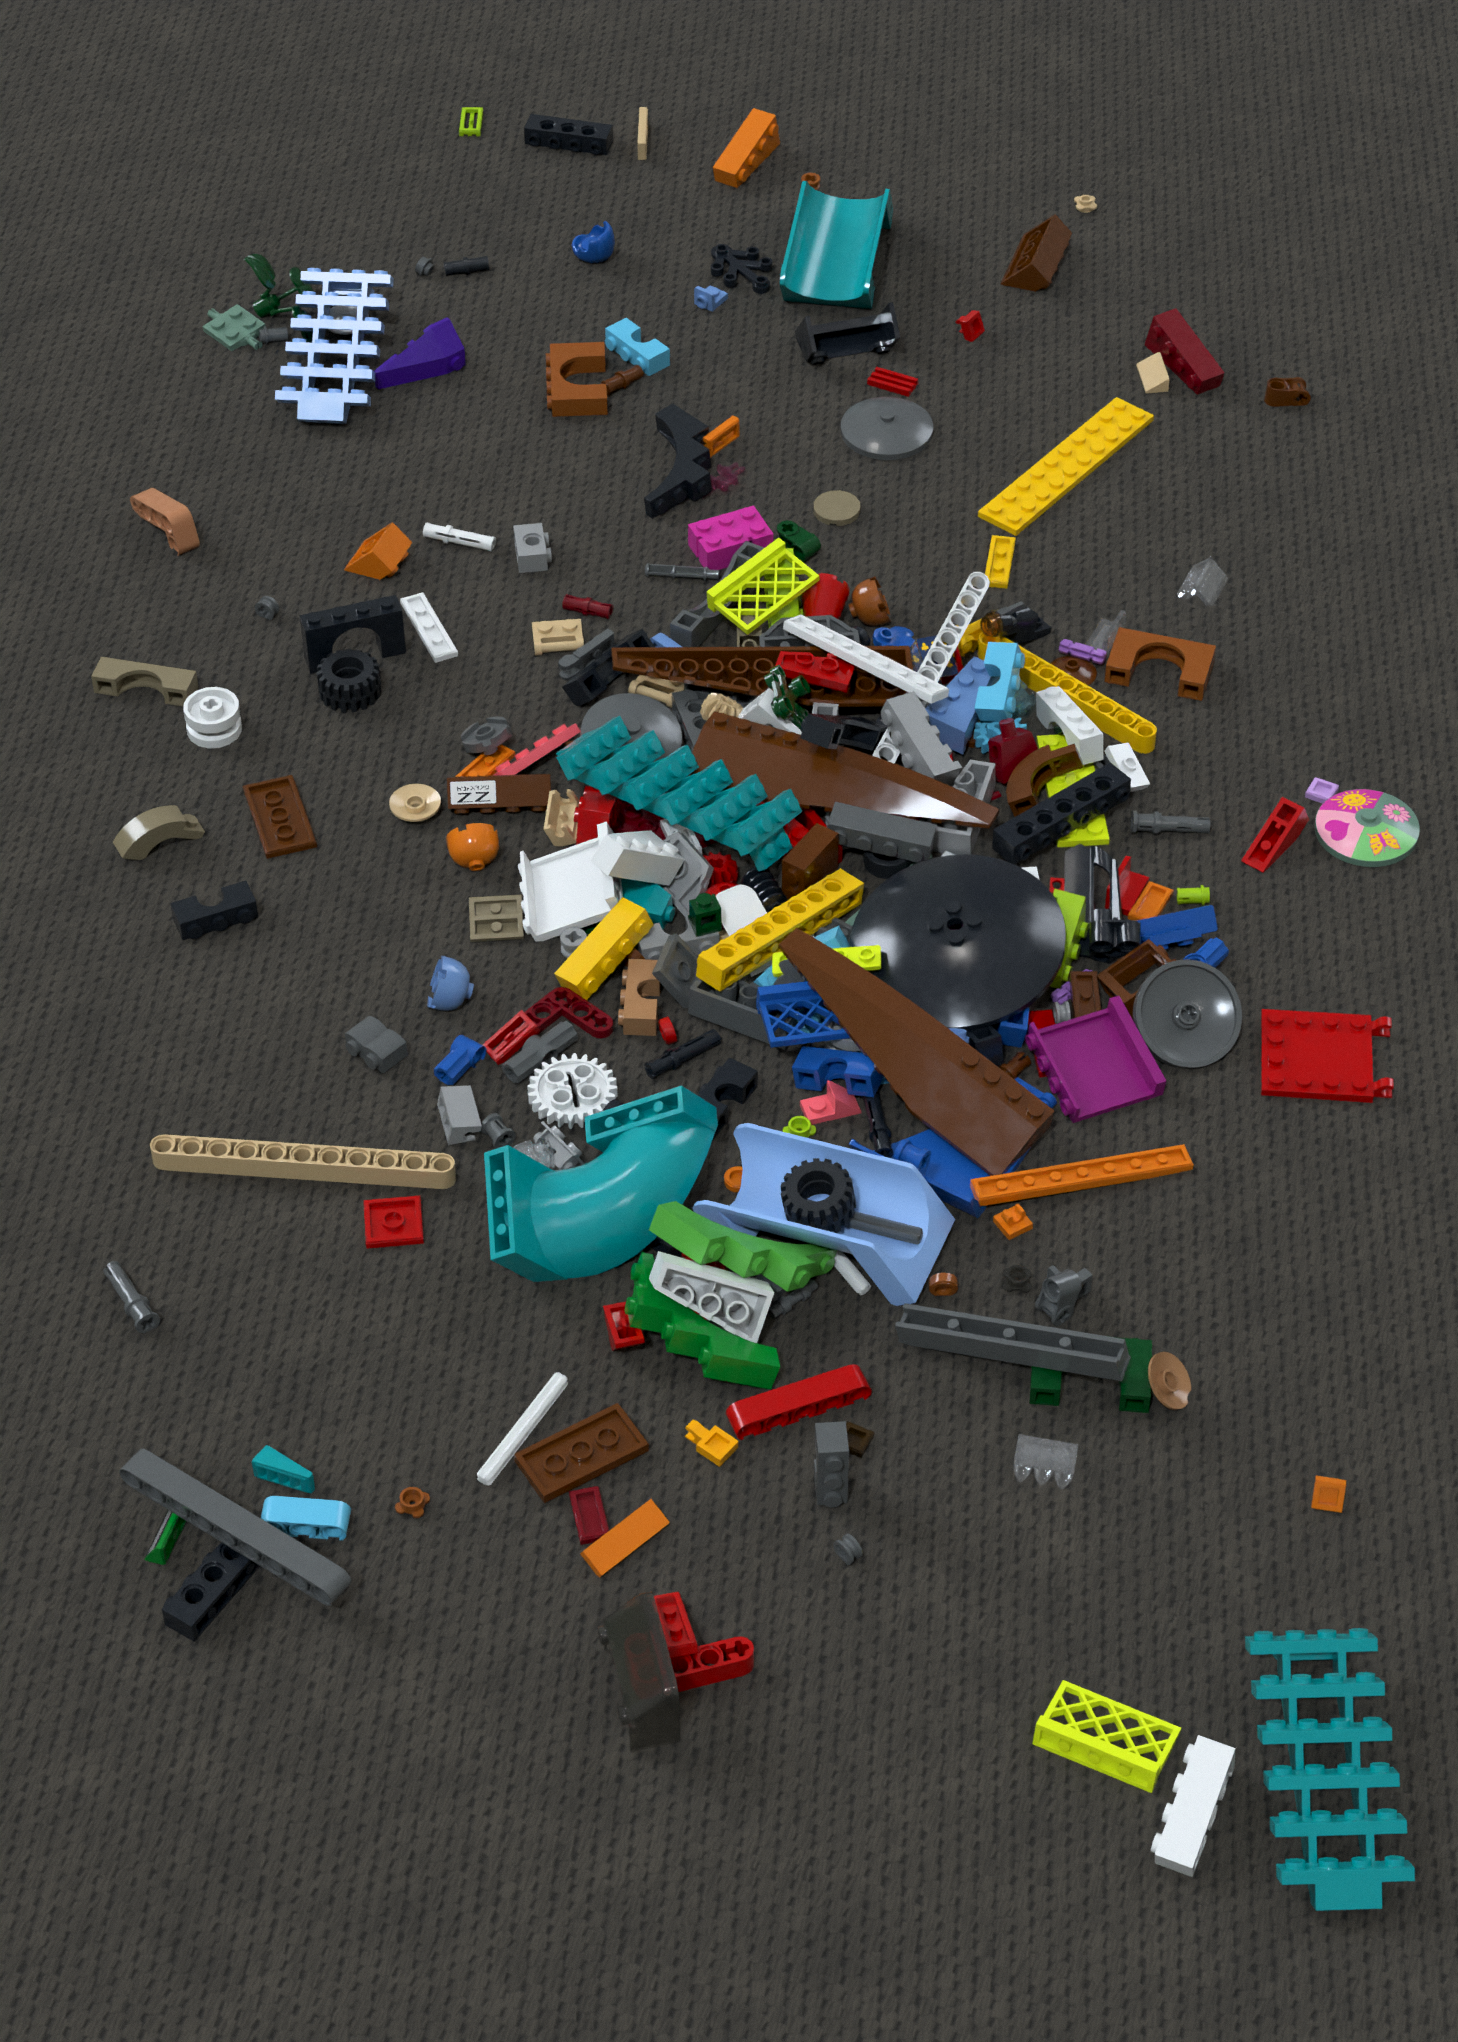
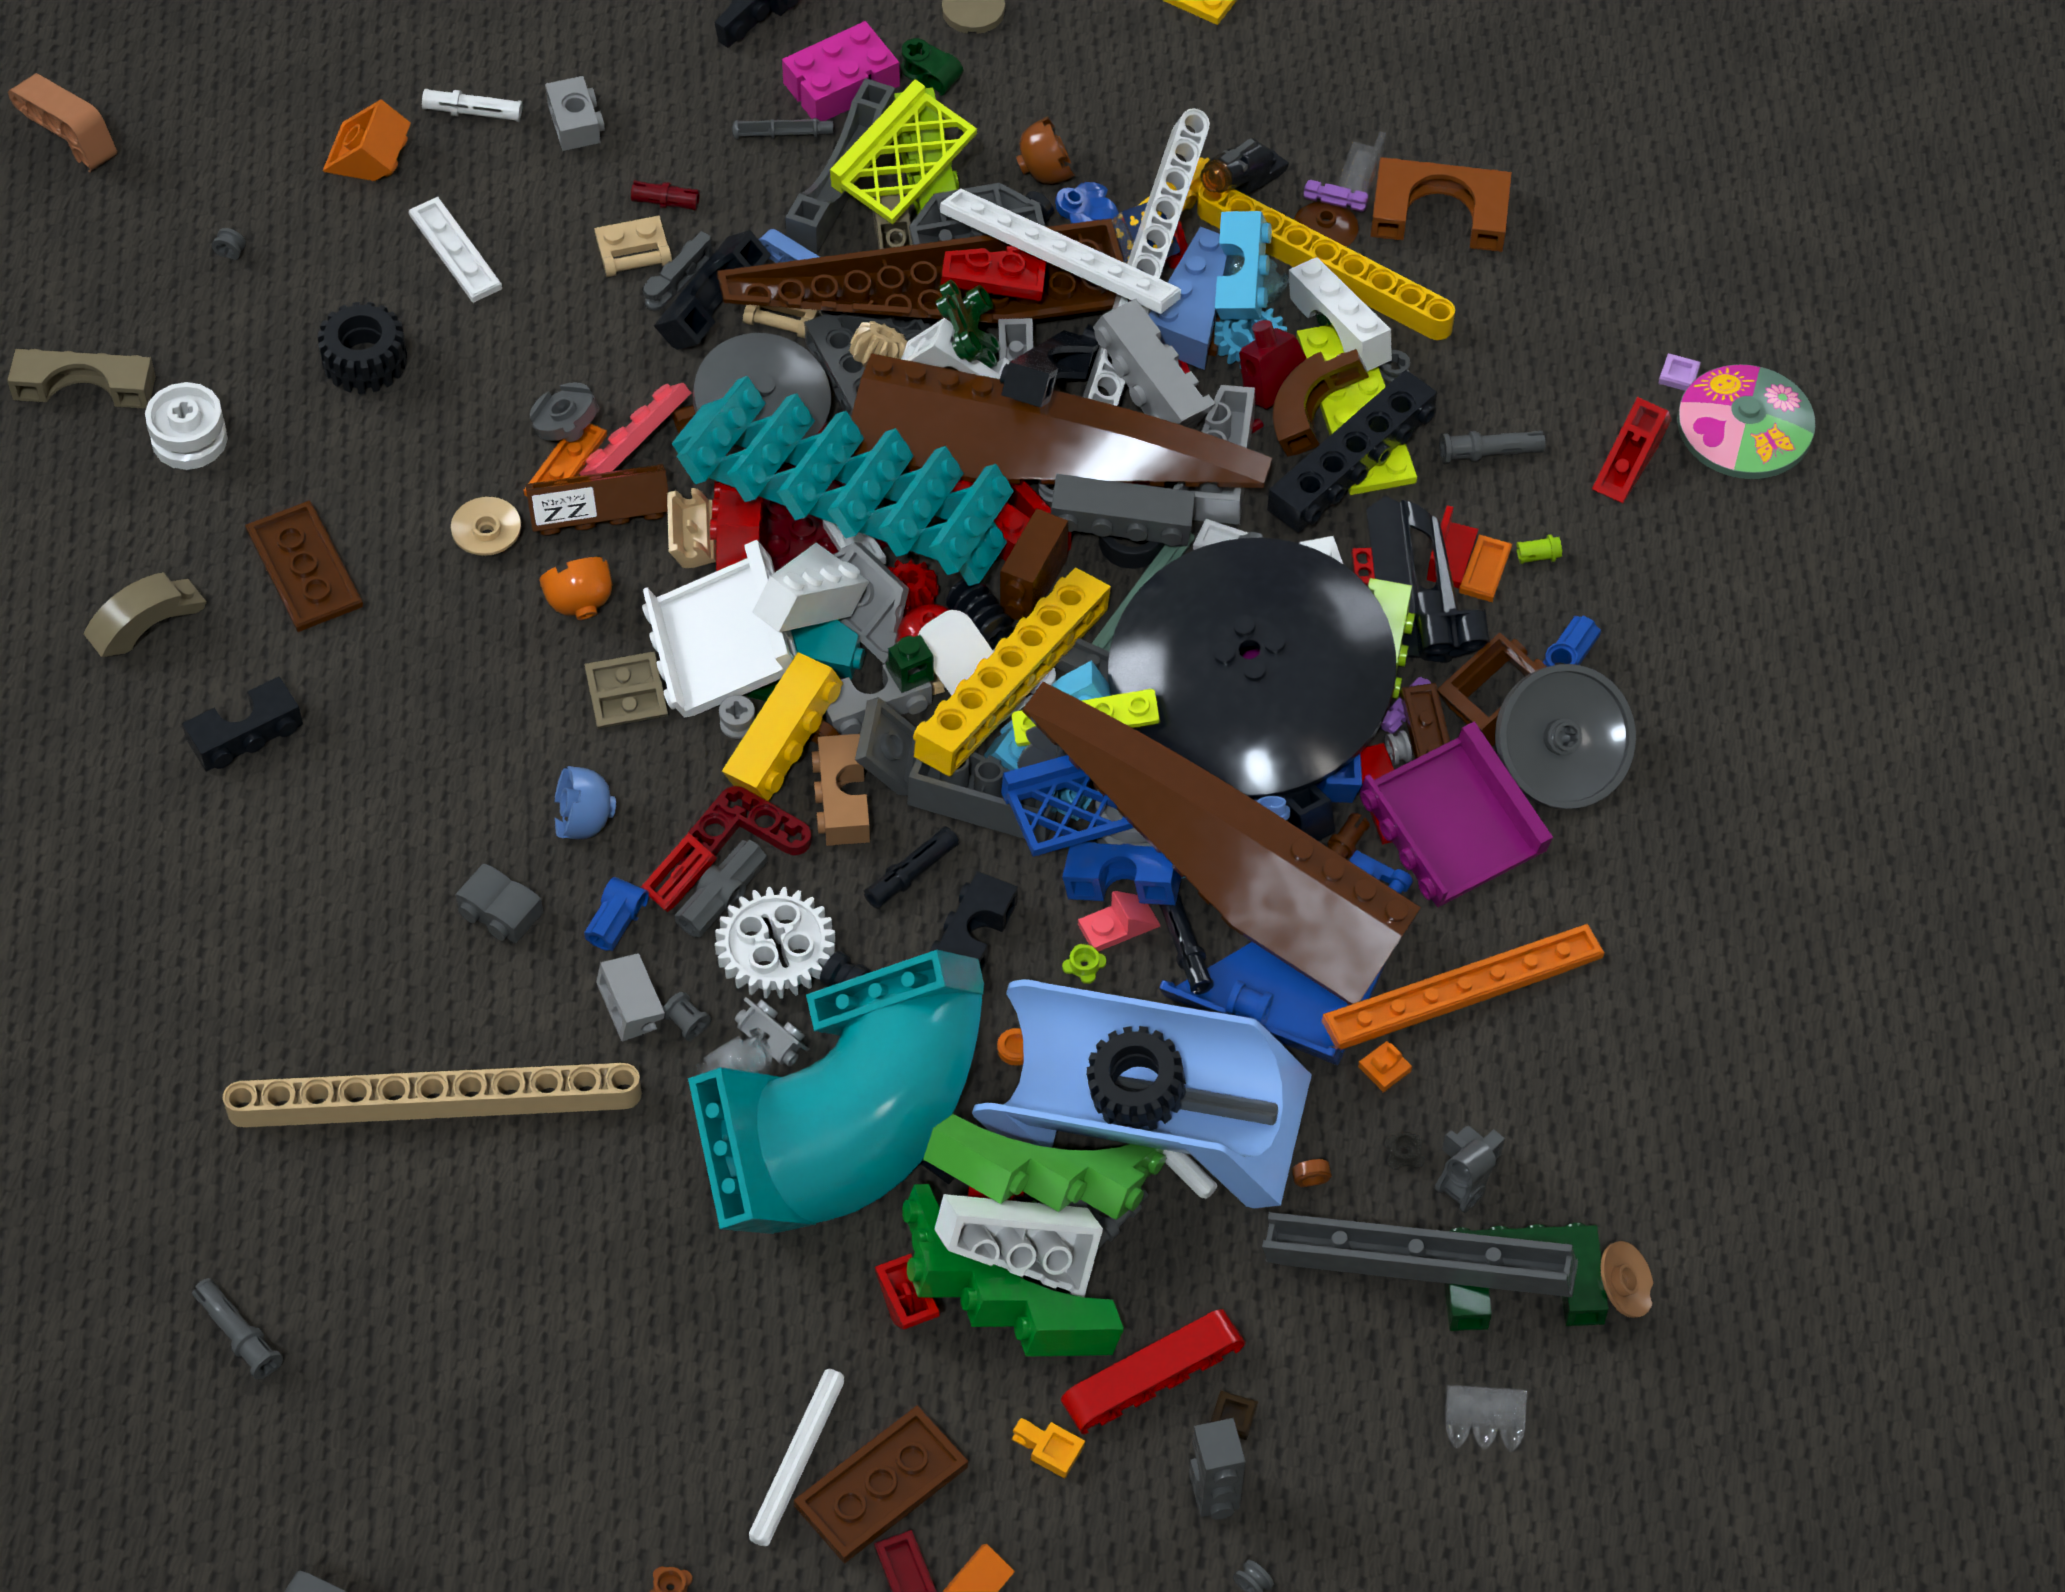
camera: 10 degrees left, 10 degrees up
(279, 1469) = (483, 1563): teal slope -> none
(323, 628) = (318, 277): black arch -> none
(393, 1222) = (569, 1168): red tile -> none
(667, 1030) = (885, 835): red tile -> none
(825, 597) = (986, 156): red cone -> none
(1000, 561) = (1203, 68): yellow tile -> none
(1125, 760) = (1423, 363): white plate -> none
(1178, 926) = (1526, 602): blue bracket -> none
(1204, 580) = (1476, 72): clear panel -> none
(1321, 1055) = (1740, 769): red plate -> none
(1328, 1494) = (1854, 1416): orange tile -> none

